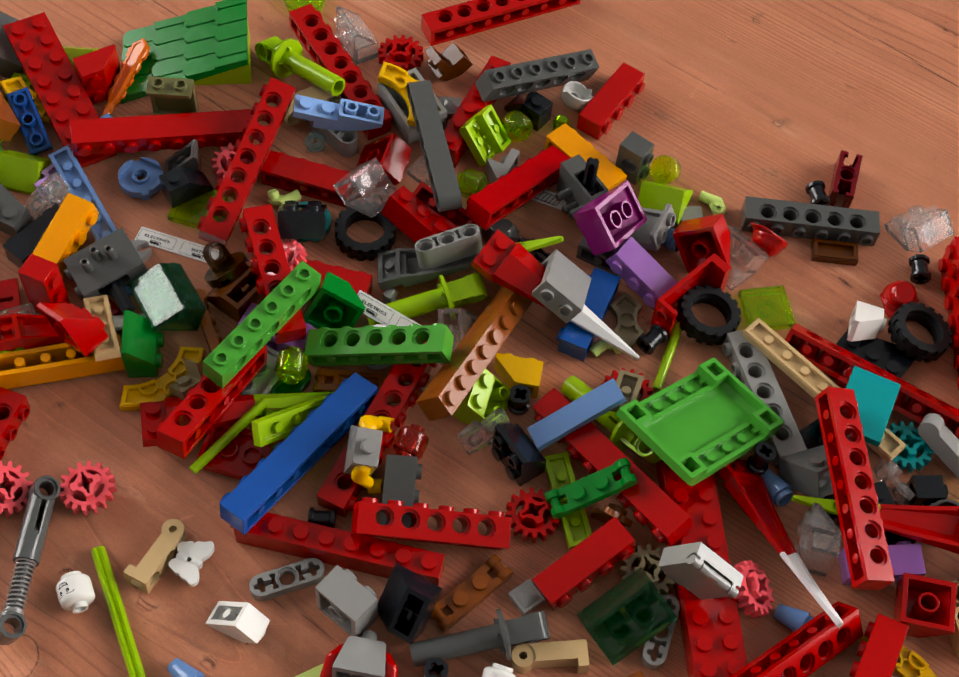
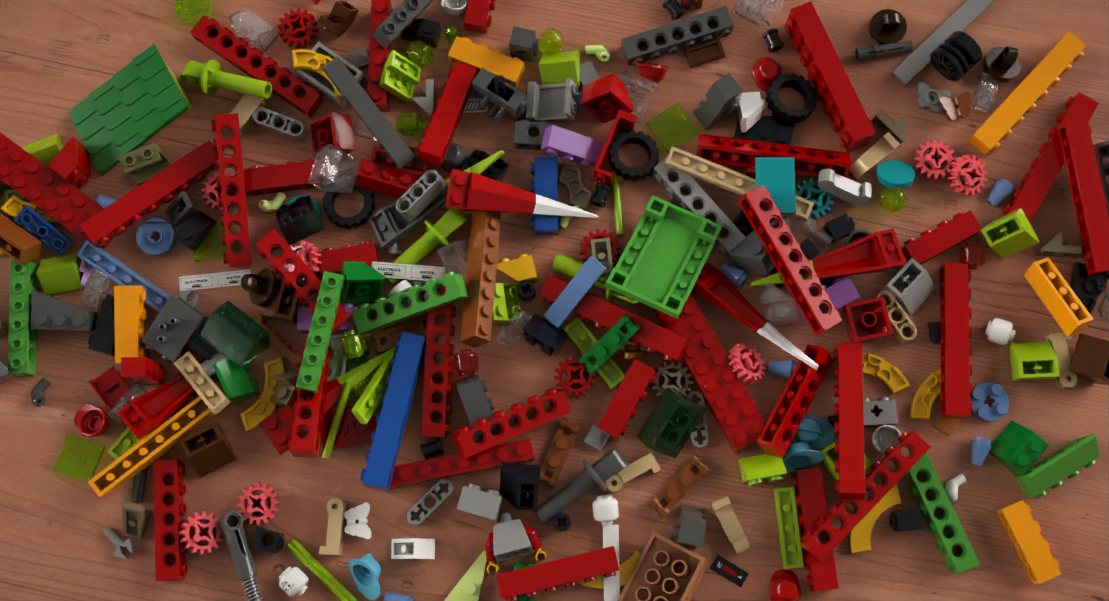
camera: 15 degrees left, 20 degrees up
(66, 403) = (208, 449): none -> reddish brown slope
(69, 523) = (260, 537): none -> black brick
(75, 325) = (185, 396): red slope -> none
(129, 67) = (92, 131): orange sword -> none
(165, 624) = (366, 575): none -> medium azure piece
(314, 147) = (275, 144): clear light blue plate -> none
(345, 116) = (280, 116): light blue slope -> none
(364, 451) = (440, 390): torso -> none
(562, 287) = (520, 191): light grey panel -> none
(610, 218) = (530, 114): magenta slope -> none
(700, 571) = (710, 378): light grey piece -> none
(760, 459) = (716, 260): black bush -> none
(835, 297) = (720, 102): none -> dark grey wedge

